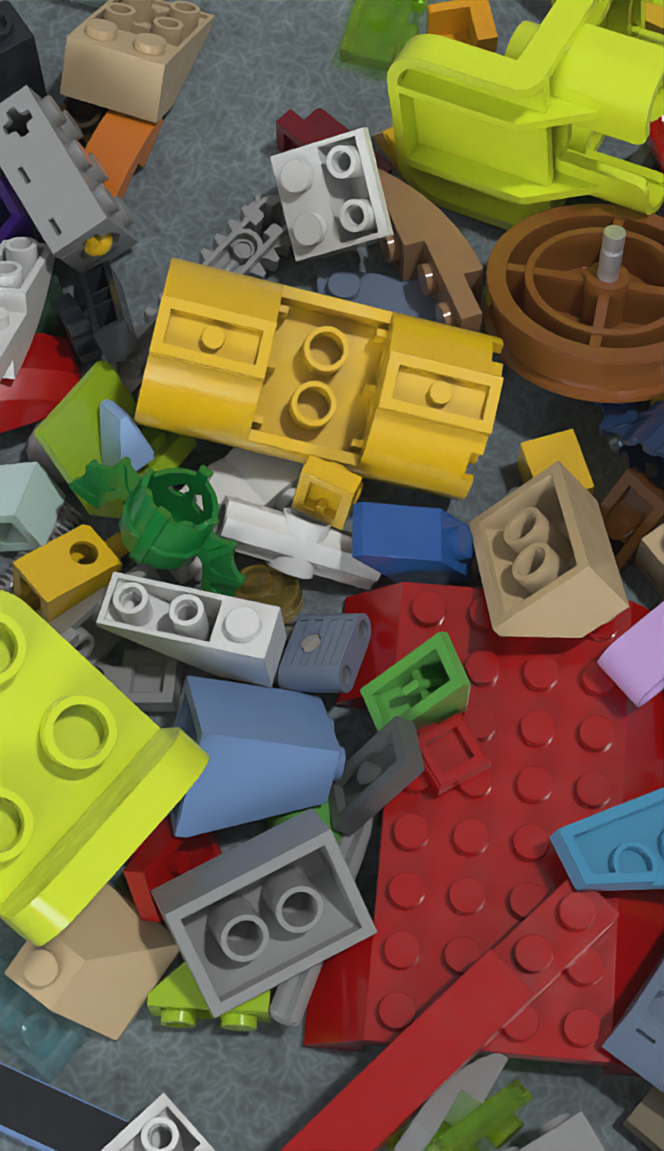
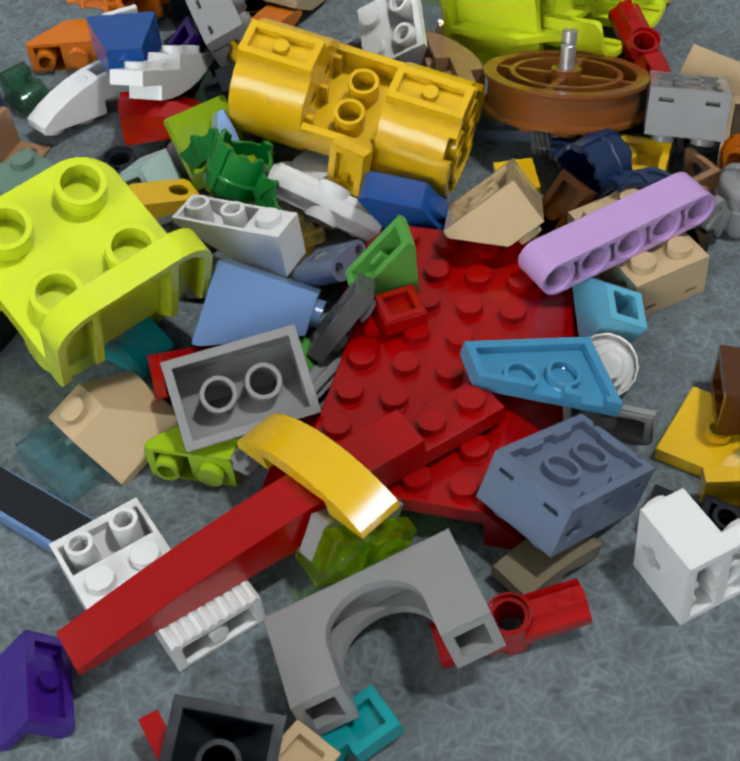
camera: 15 degrees right, 20 degrees down
(403, 1049) = (323, 468): none -> yellow slope

